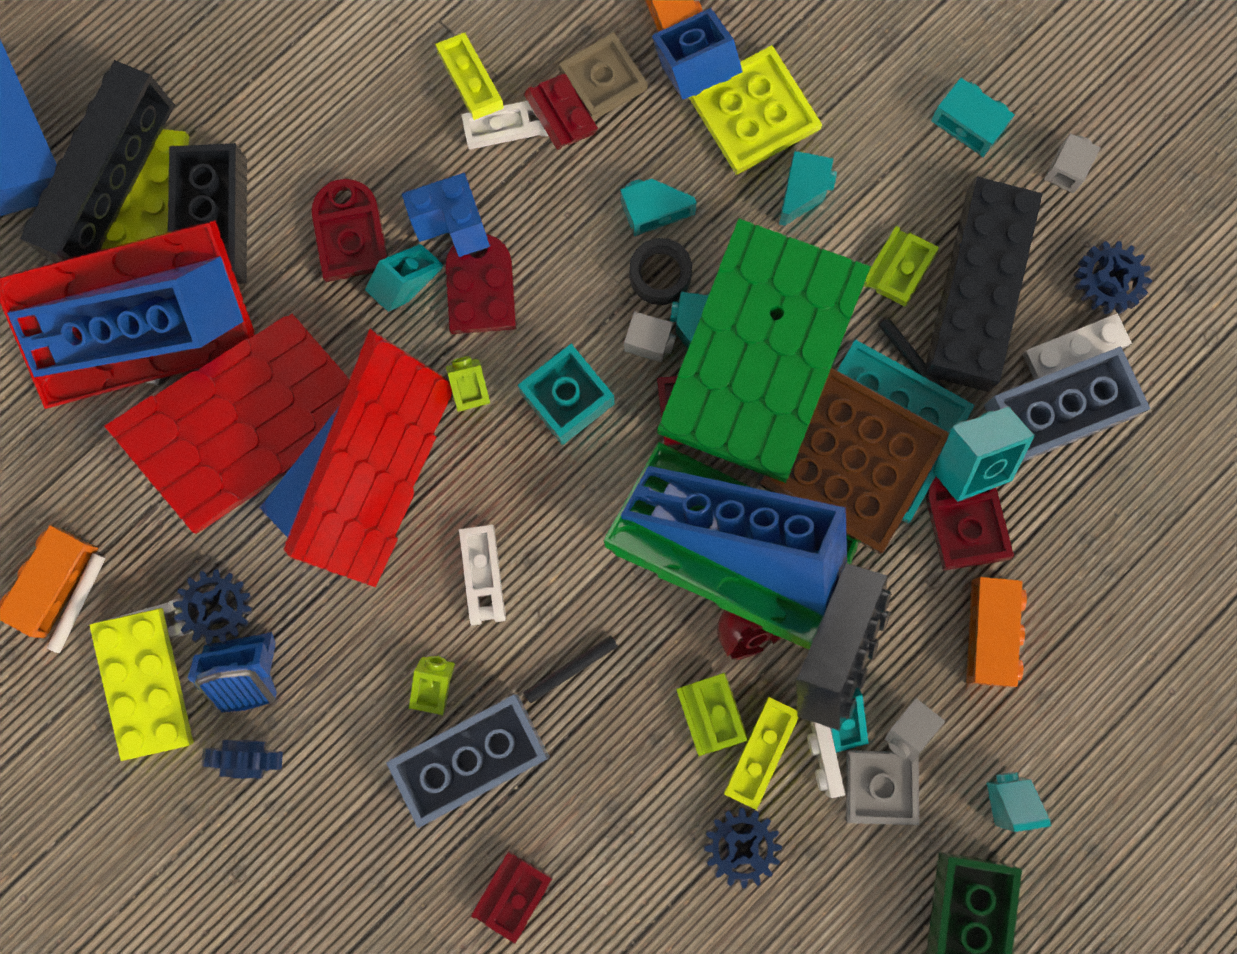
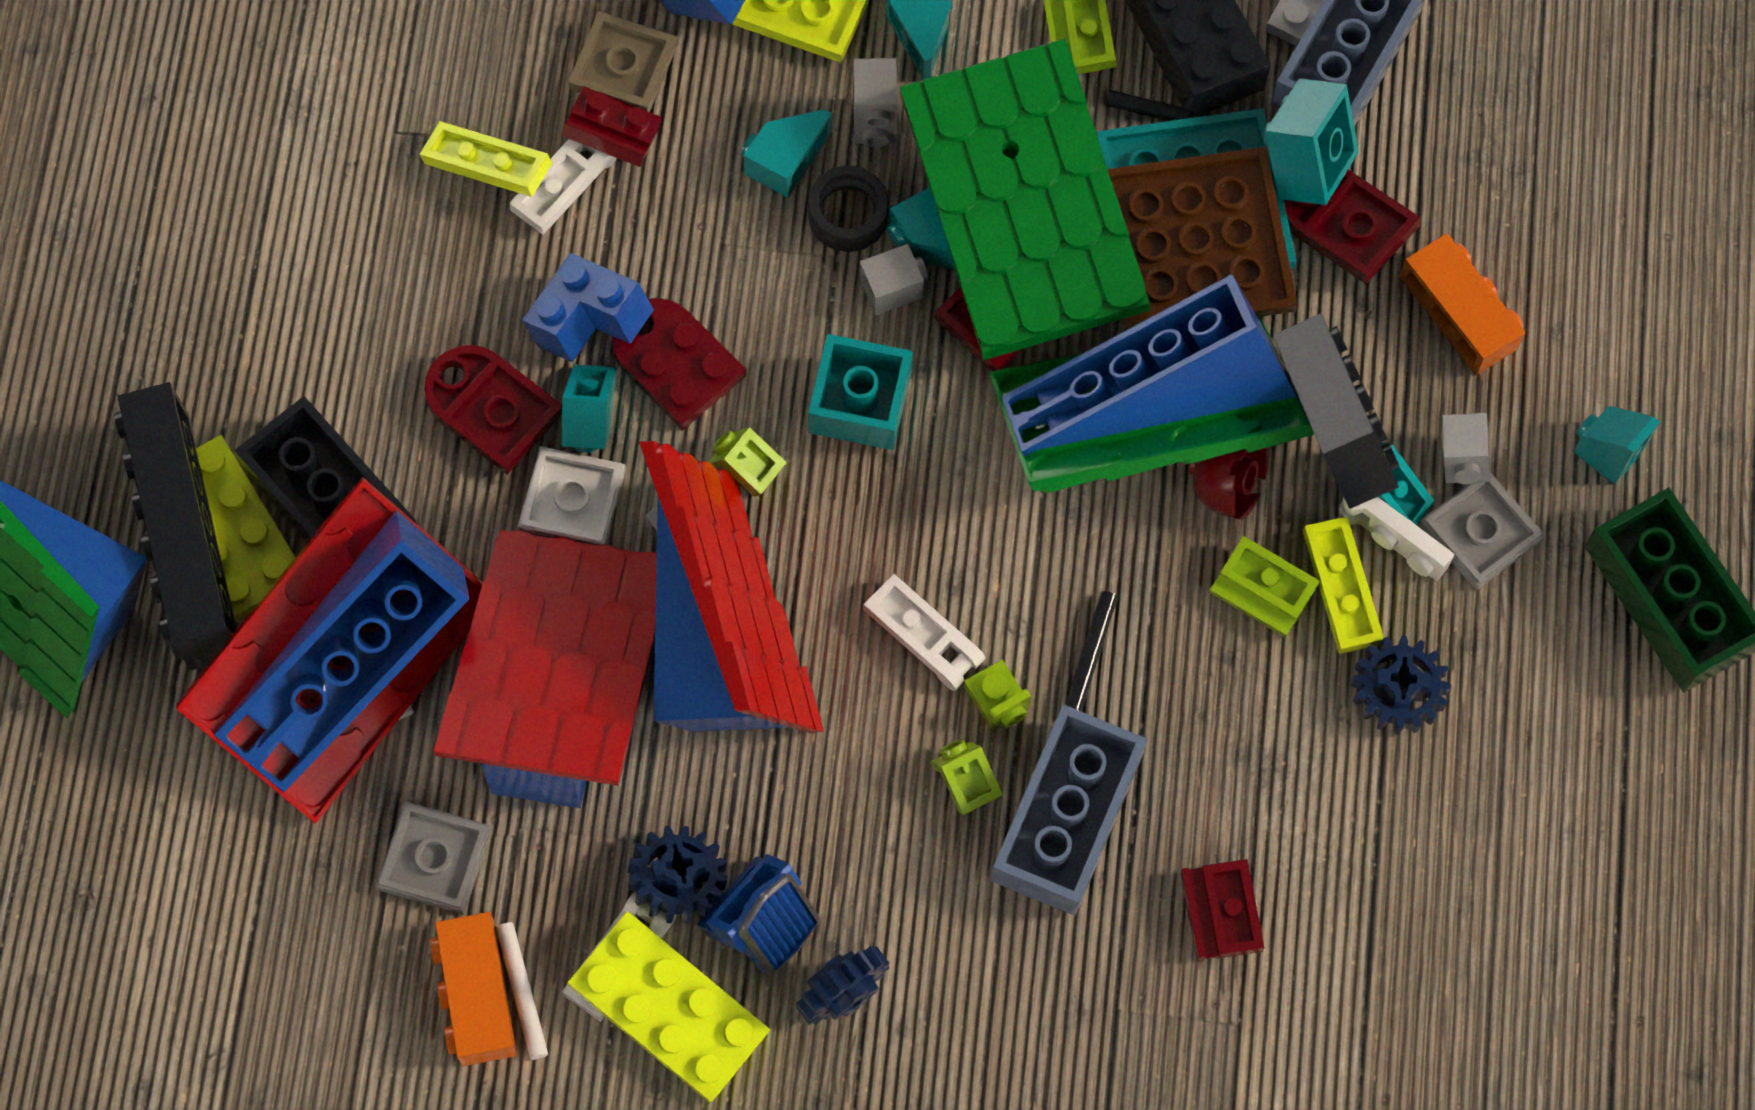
camera: 45 degrees left, 10 degrees down
(94, 482) = (434, 857): none -> light grey tile
(345, 322) = (571, 497): none -> white tile
(493, 650) = (998, 696): none -> lime bracket
(724, 210) = (875, 101): none -> light grey brick

